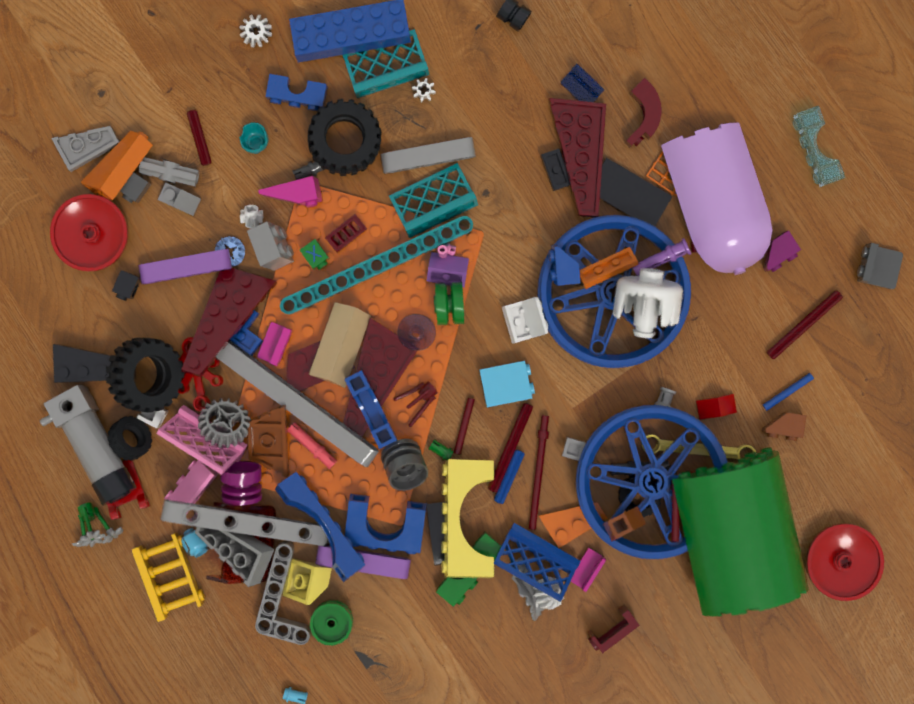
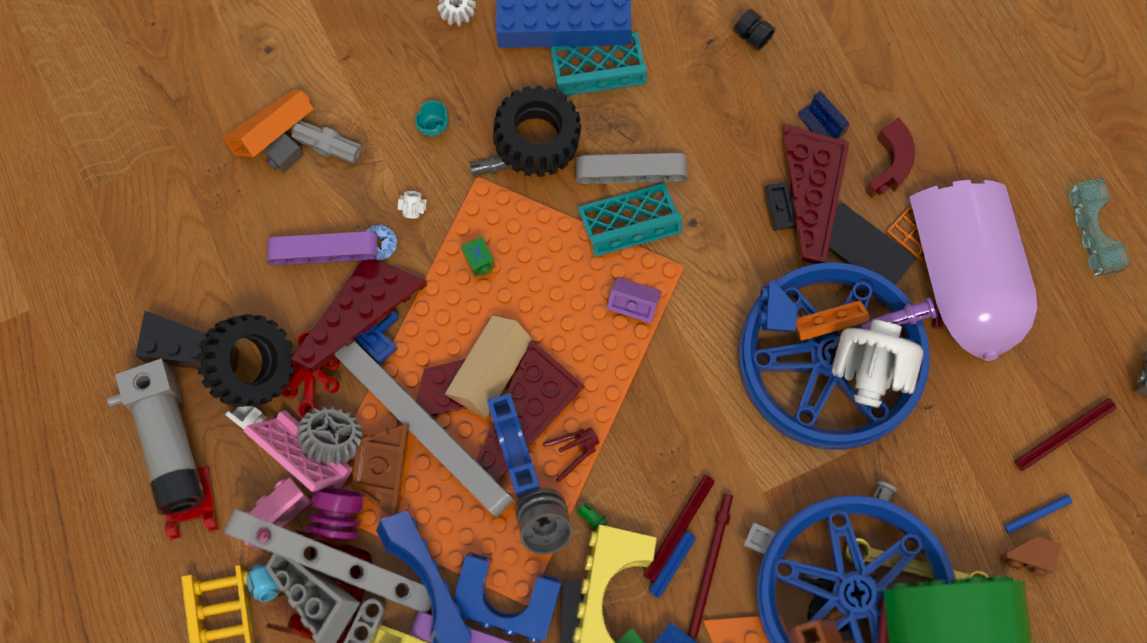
camera: 10 degrees right, 15 degrees down
(84, 147) = (231, 103): light grey wing -> none
(87, 514) = (138, 525): plant -> none
(89, 232) = (218, 193): red dish -> none
(120, 446) = (197, 443): black tyre -> none
(126, 285) = (248, 260): black brick -> none
(179, 199) = (332, 174): light grey slope -> none
(199, 138) = (369, 114): dark red axle -> none
(271, 246) = (428, 237): light grey brick -> none
(274, 343) = (411, 354): dark pink panel -> none
(301, 192) = (473, 184): dark pink slope -> none
(309, 443) = (436, 488): coral pin -> none
(313, 96) = (471, 75): blue arch -> none
(338, 248) = (524, 246): dark red slope -> none
(367, 265) = (541, 289): teal beam -> none
(416, 324) = (587, 358): dish -> none
(427, 94) = (637, 90): white gear -> none
(444, 250) = (635, 275): bright pink arm -> none
(449, 303) = (630, 335): green wheel -> none
(464, 425) = (625, 492): dark red bar -> none
(506, 383) = (686, 446): medium azure panel -> none
(525, 320) = (720, 372): white bracket -> none
(716, 406) = (946, 517): red slope -> none
(780, 249) = (1043, 338): magenta slope -> none

